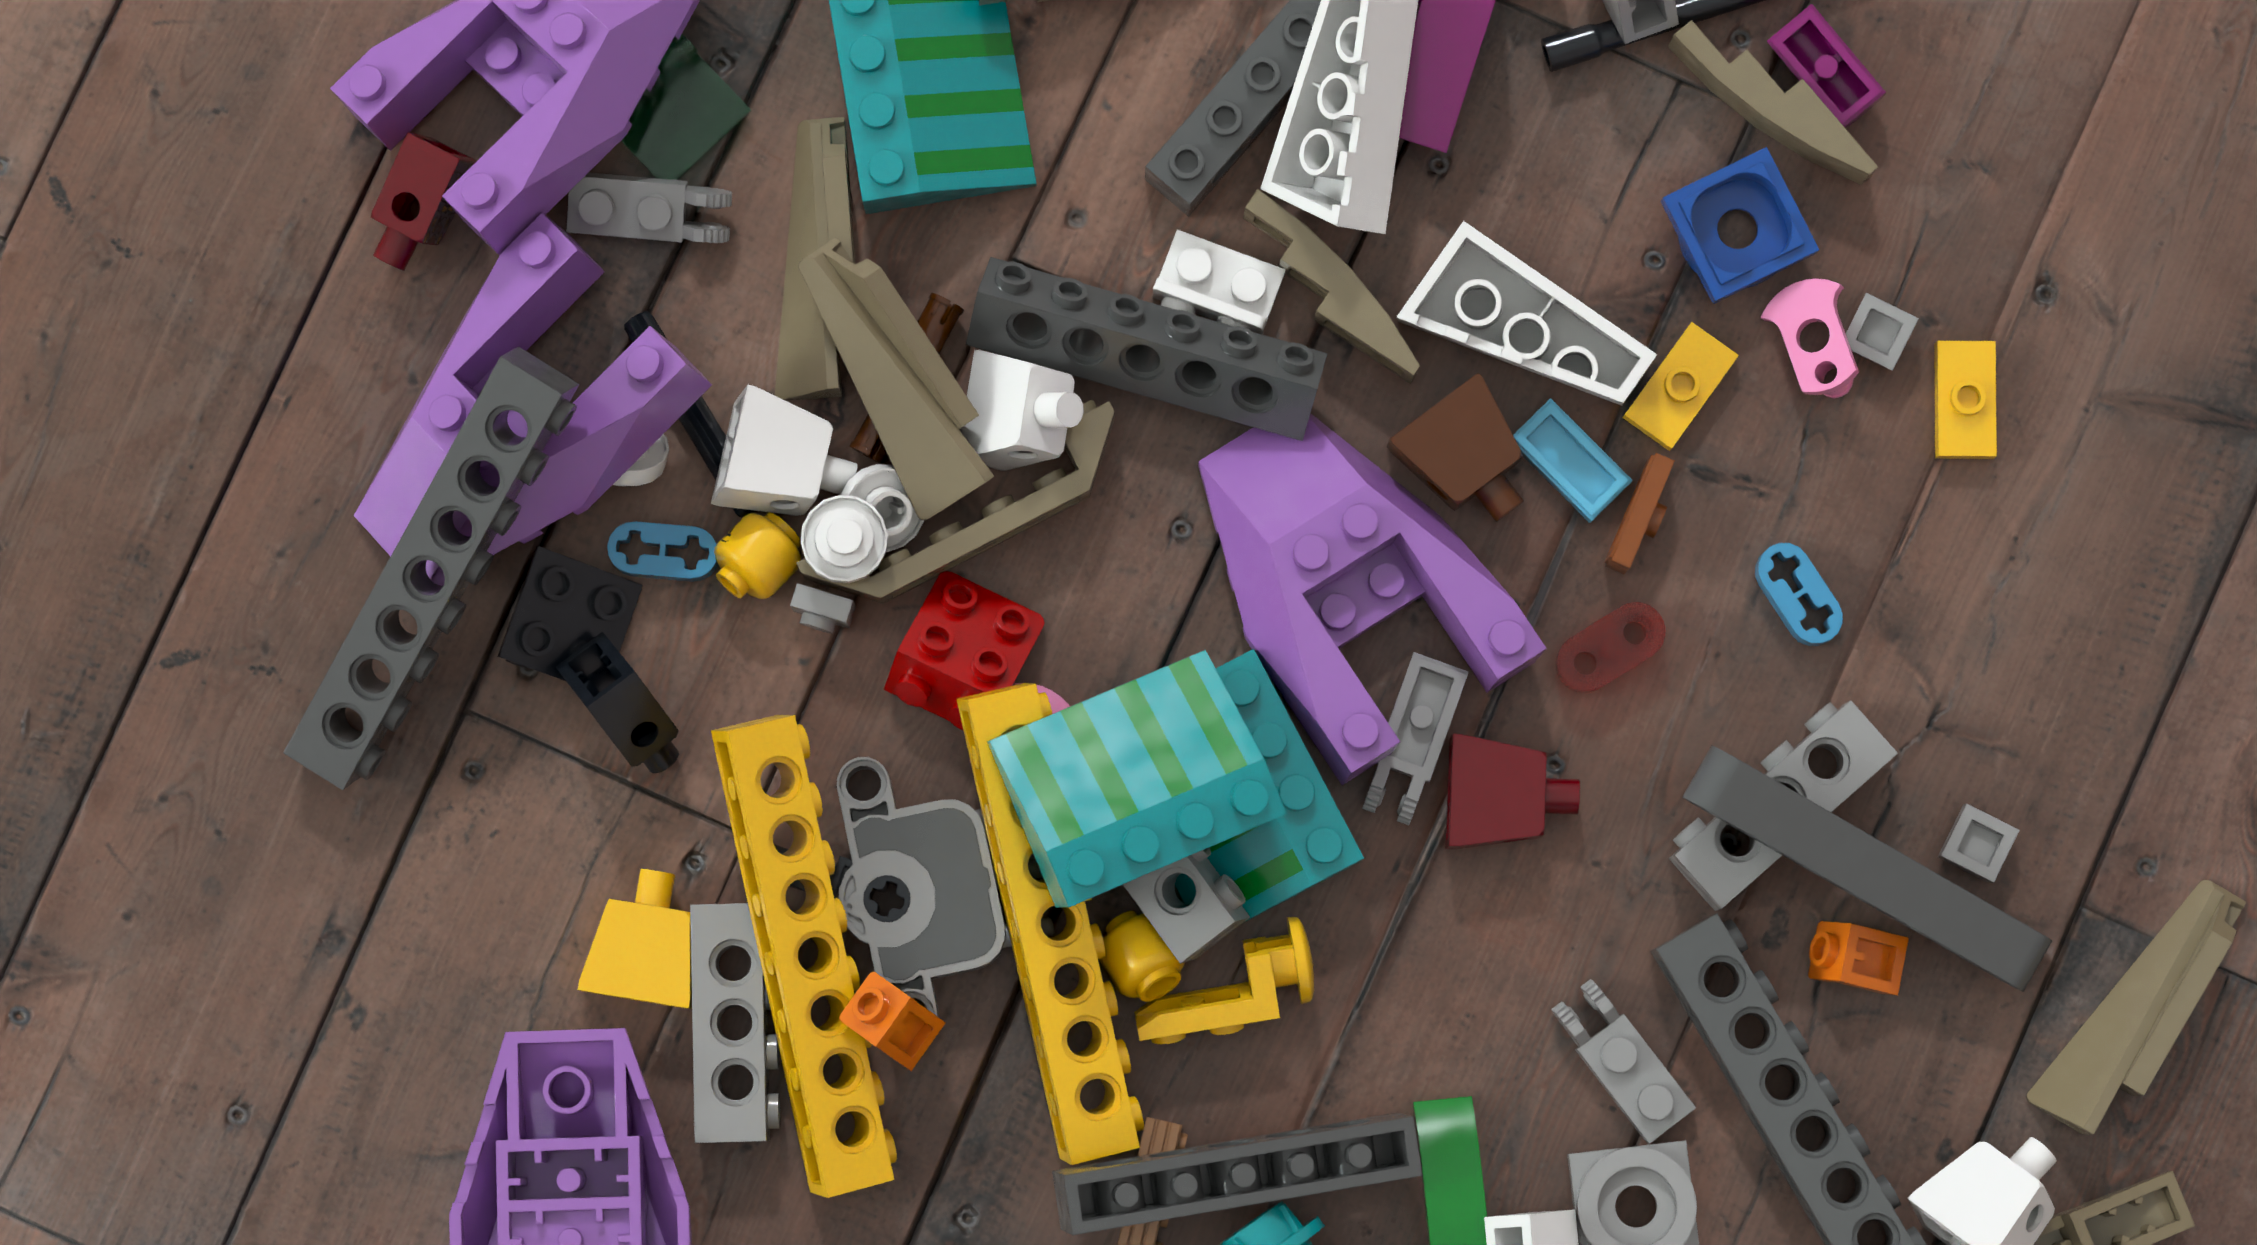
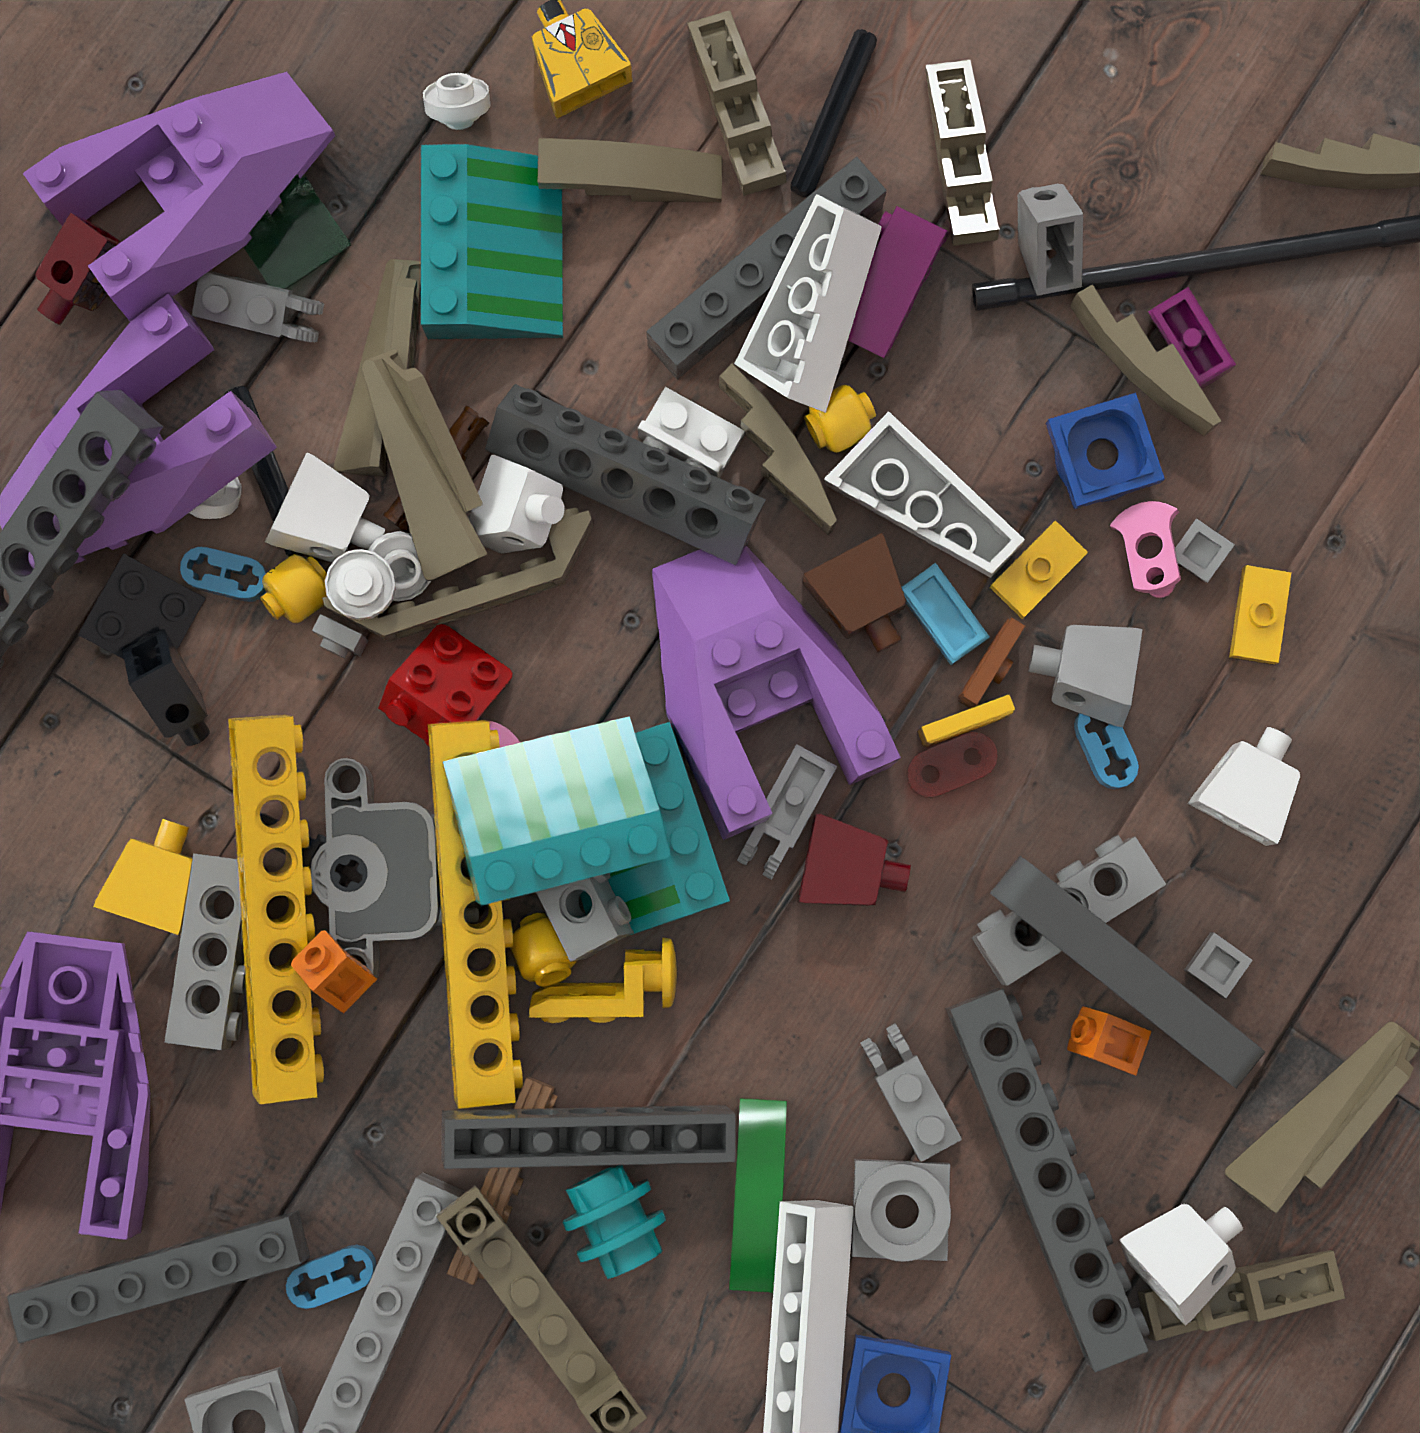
camera: 10 degrees right, 0 degrees up
(1410, 238) = (844, 421): none -> yellow head
(1620, 590) = (966, 721): none -> yellow tile
(1766, 502) = (1092, 670): none -> light grey torso
(1986, 617) = (1251, 788): none -> white torso

